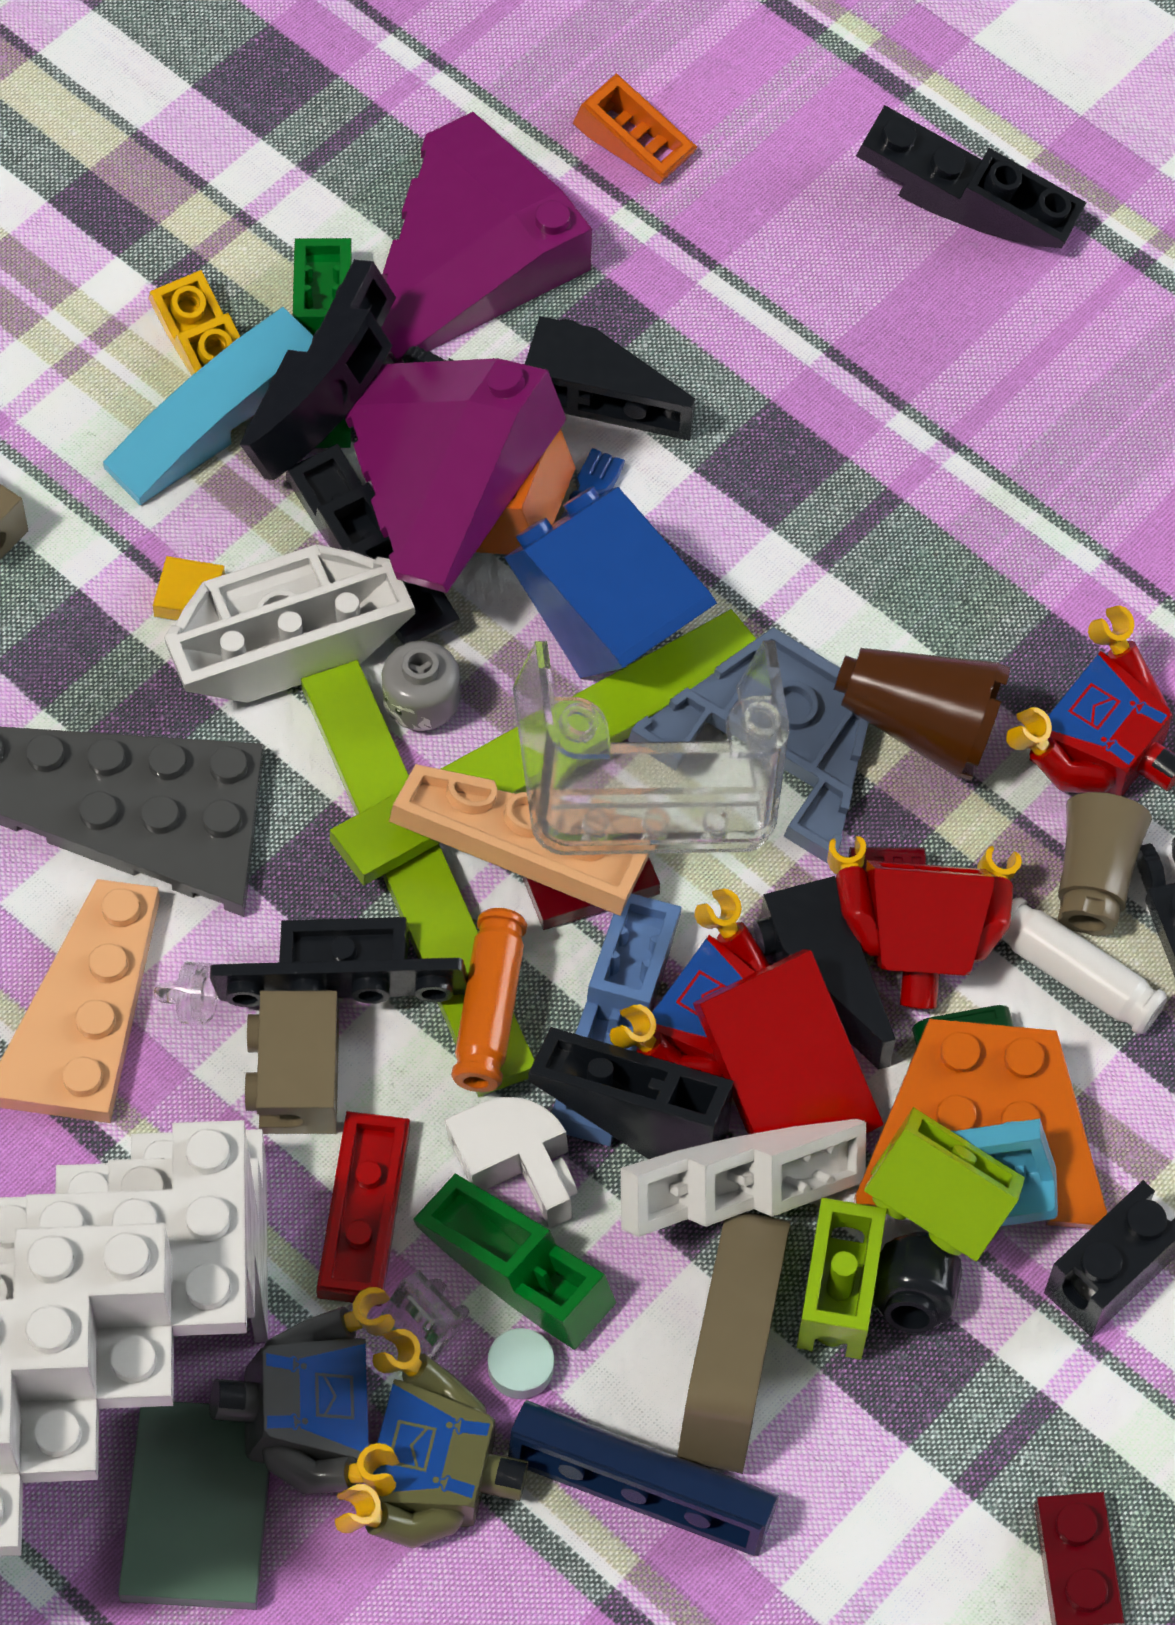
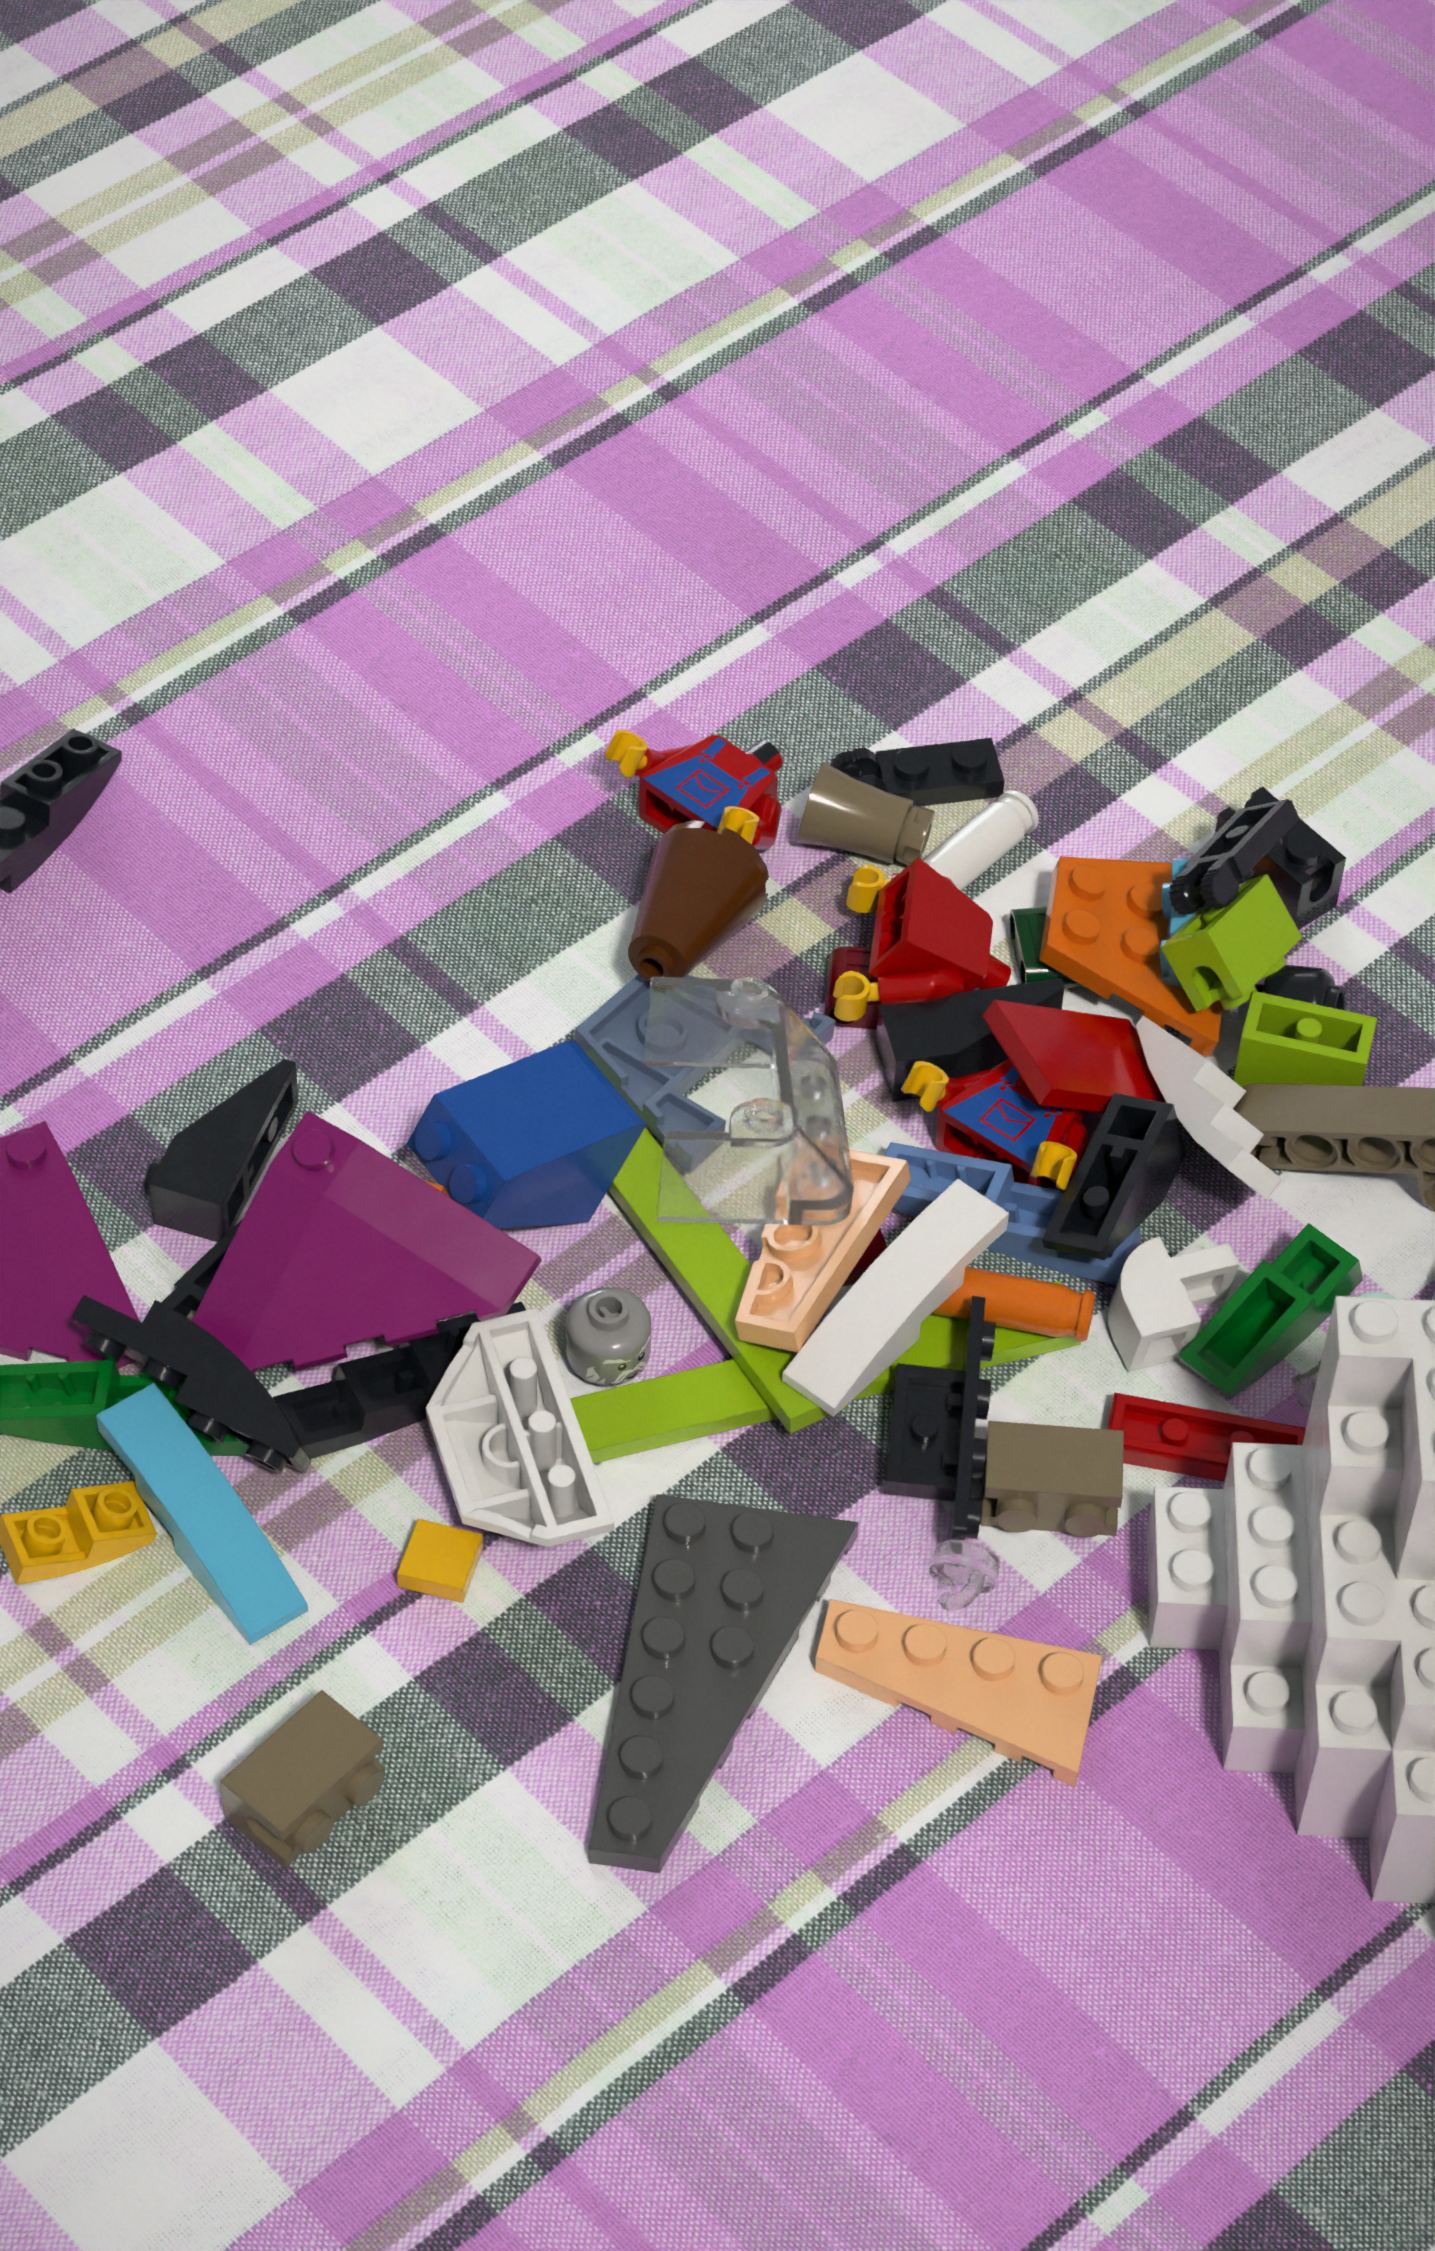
camera: 85 degrees left, 10 degrees down
(457, 894) = (893, 1296): none -> white slope
(1042, 1168) = (1230, 855): none -> black hinge

